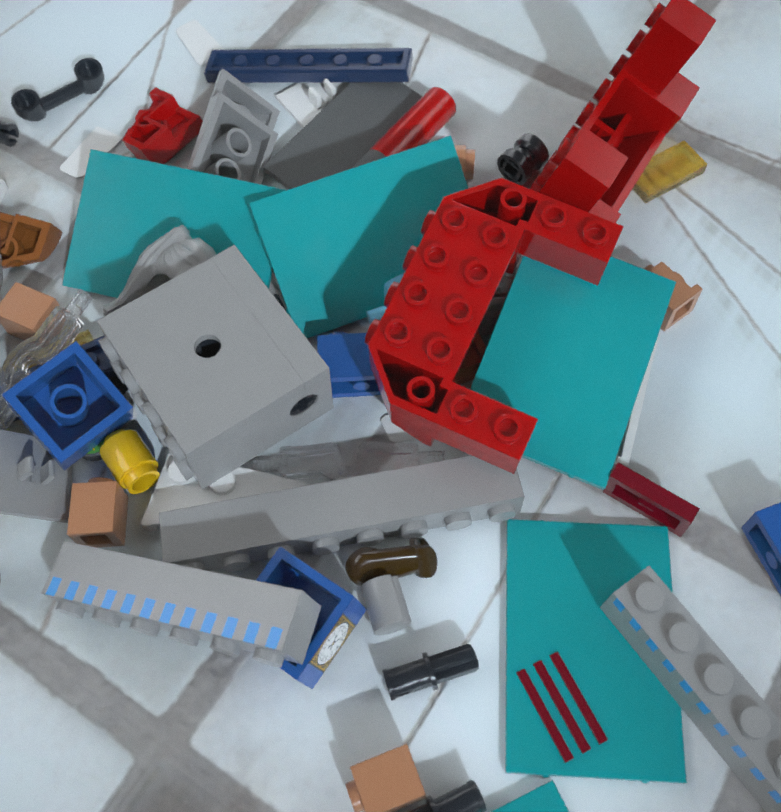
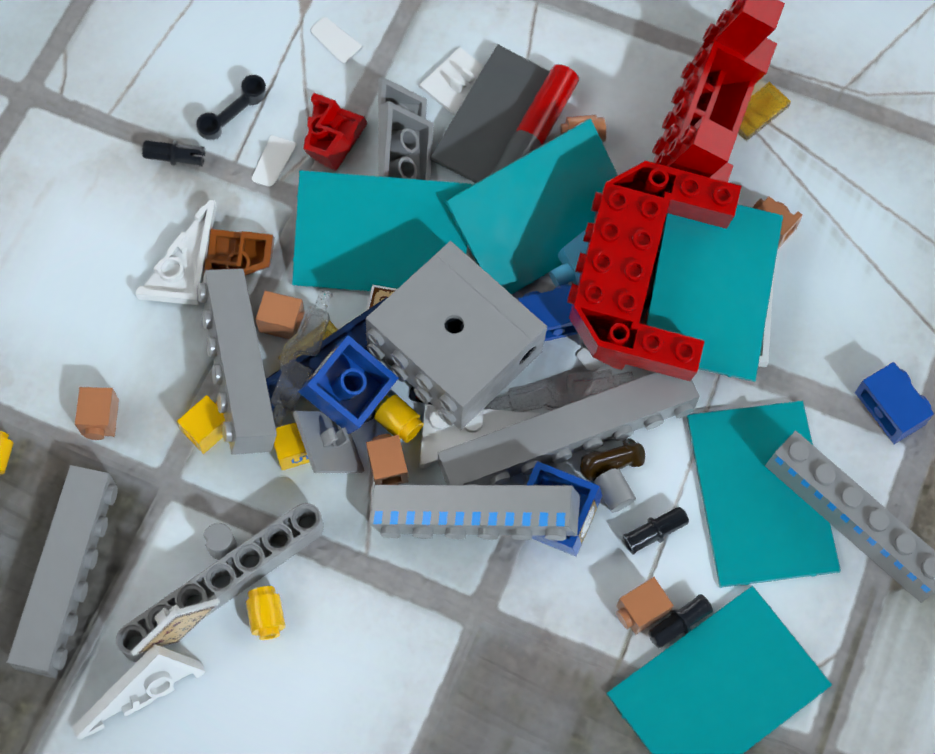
camera: 15 degrees left, 5 degrees up
(160, 263) = (387, 254): light grey hair -> none
(312, 65) = (443, 54): dark blue tile -> none
(527, 156) = (641, 121): black wheel -> none
(562, 707) = (760, 549): dark red tile -> none
(650, 499) = (788, 383): dark red tile -> none

